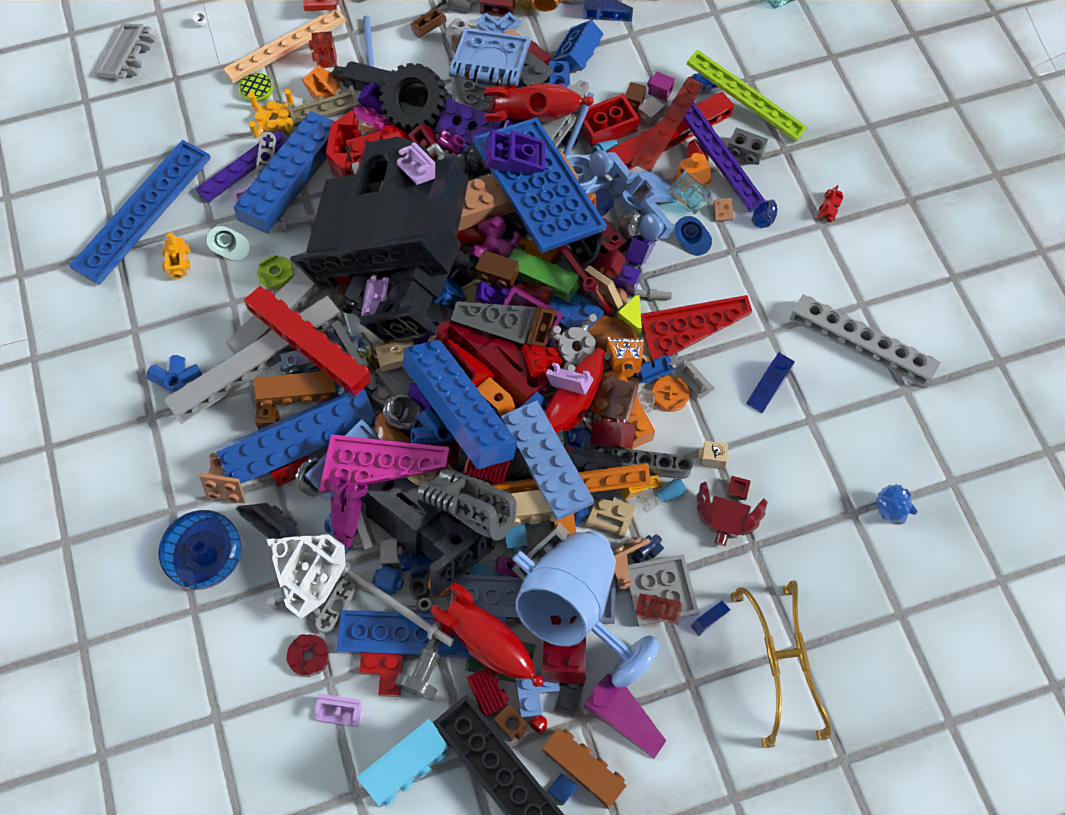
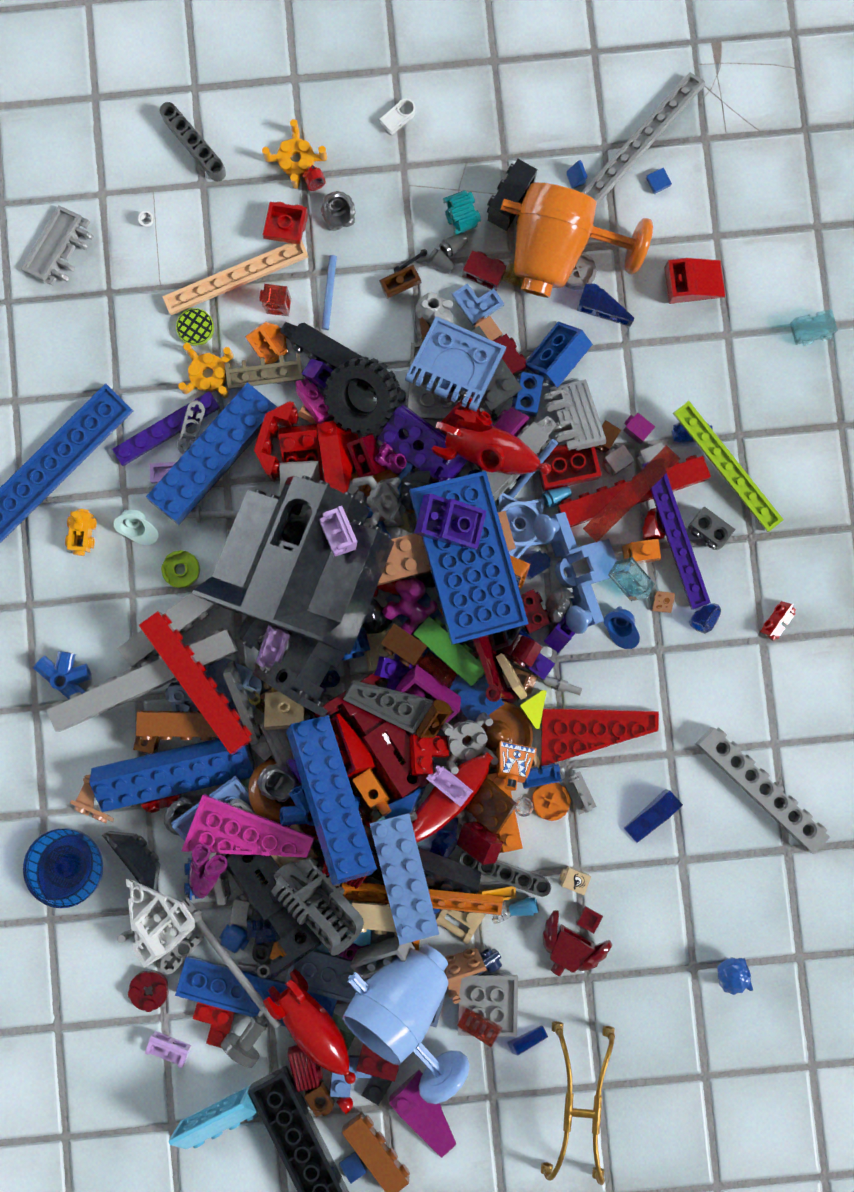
camera: 15 degrees right, 20 degrees up
(605, 82) = (578, 418): none -> light grey hinge

